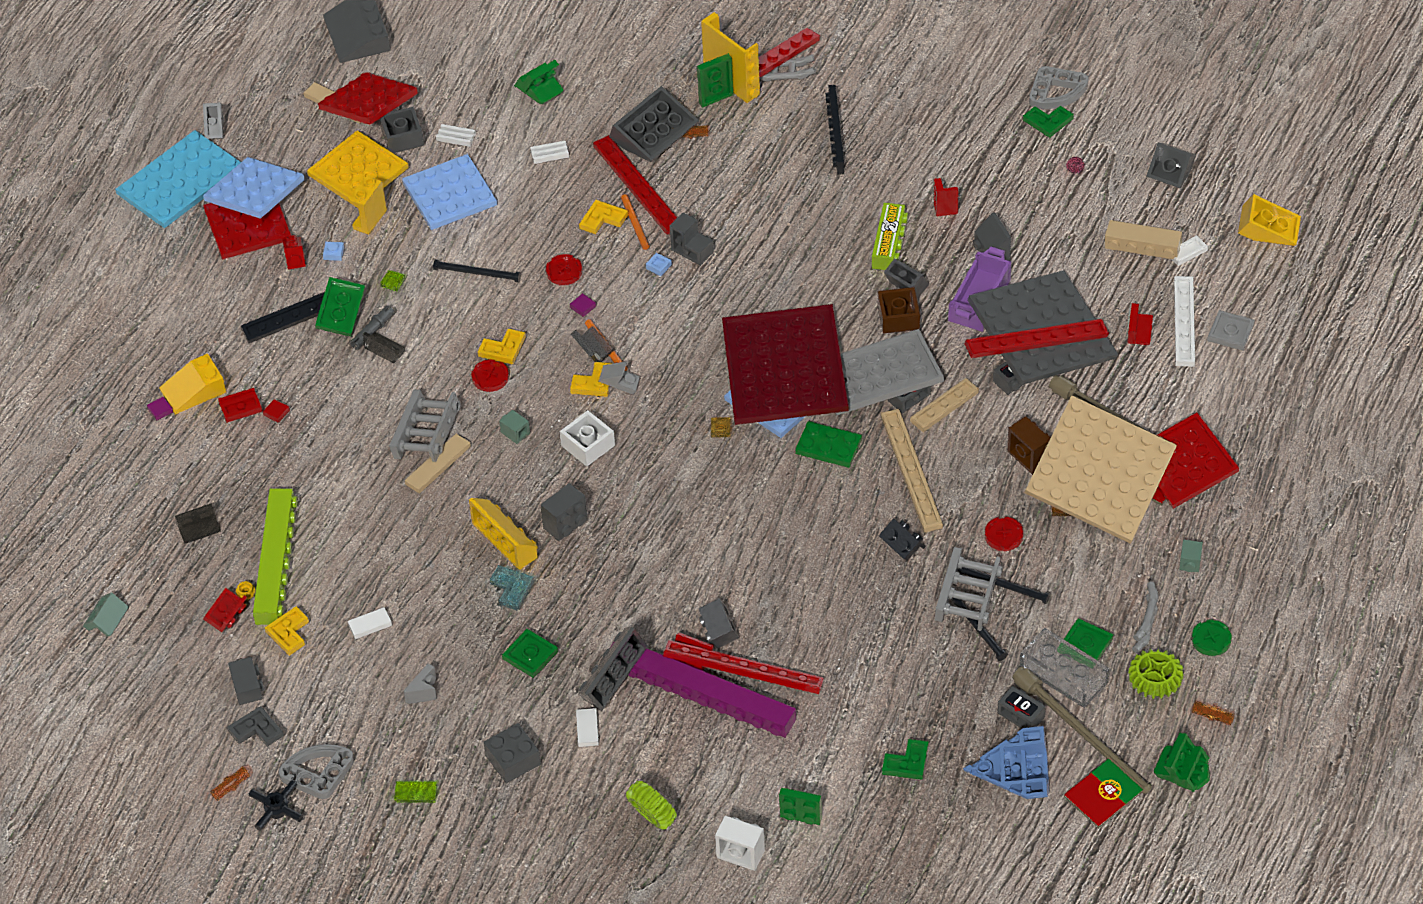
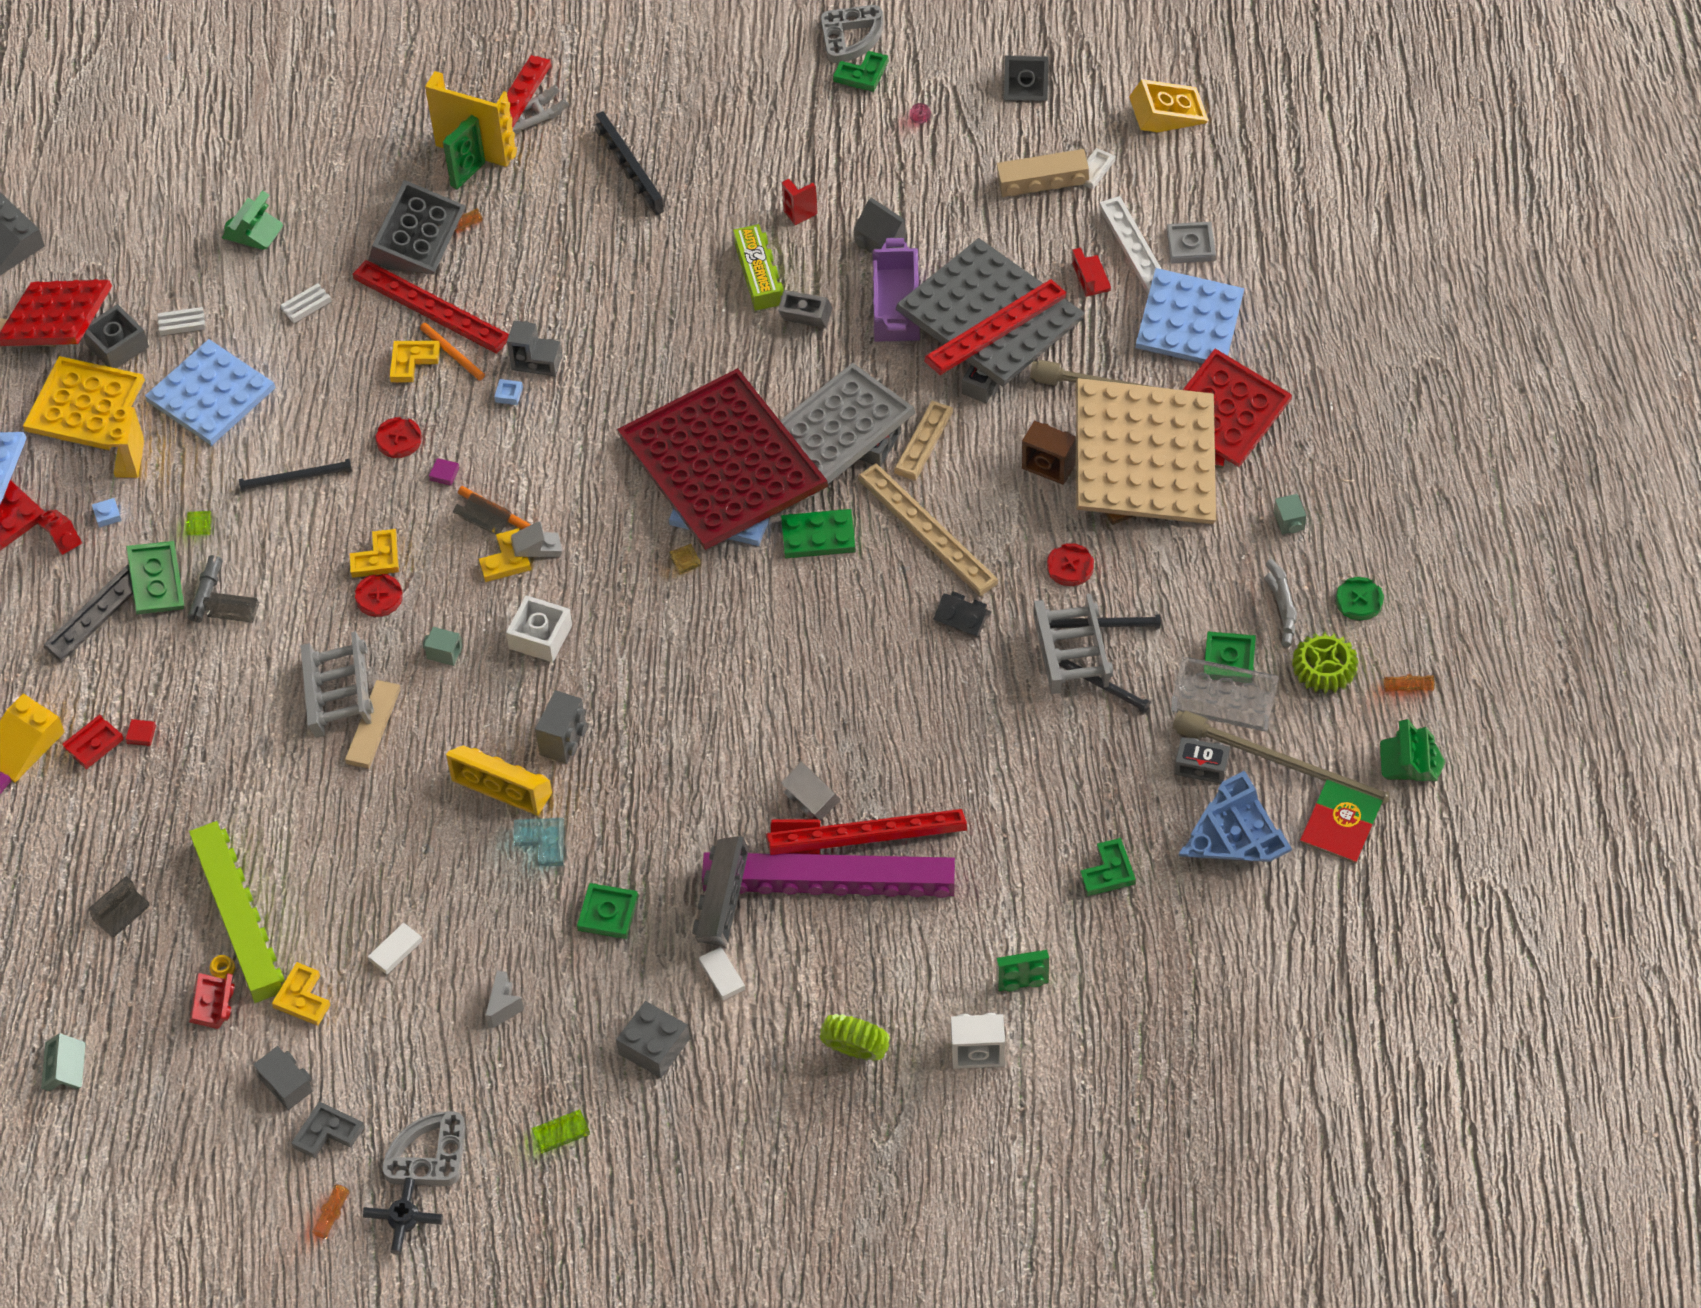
camera: 25 degrees left, 5 degrees up
(898, 310) = (817, 349): reddish brown brick -> none
(1195, 383) = (1188, 316): none -> light blue plate

